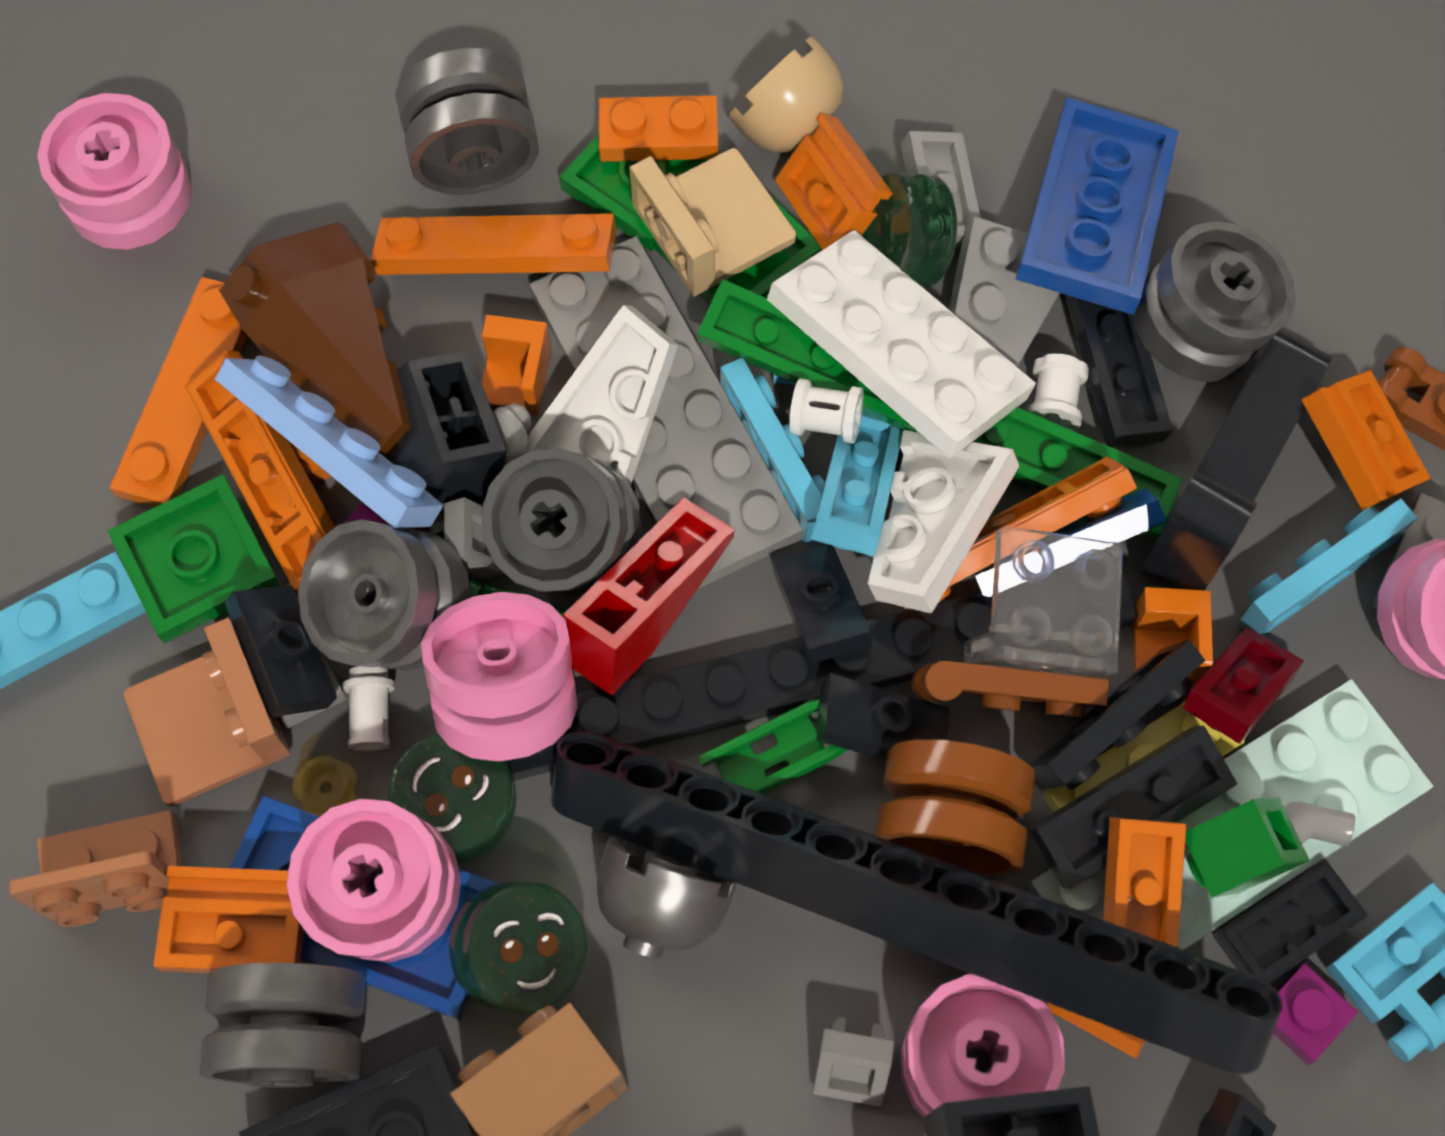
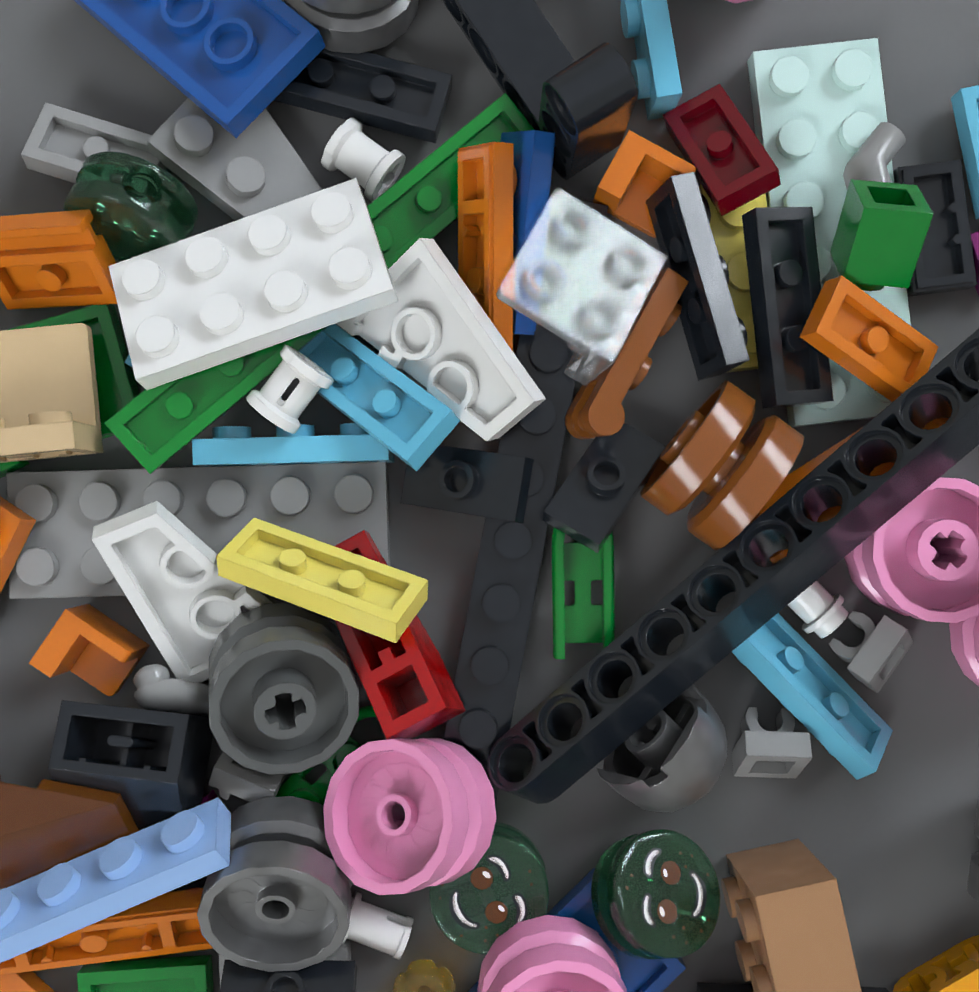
camera: 65 degrees left, 20 degrees up
(677, 506) = (323, 579): none -> light yellow plate
(705, 1002) = (770, 752): none -> light grey tile
(785, 1014) = (816, 696): none -> medium azure plate
(870, 978) = (819, 610): none -> white pin

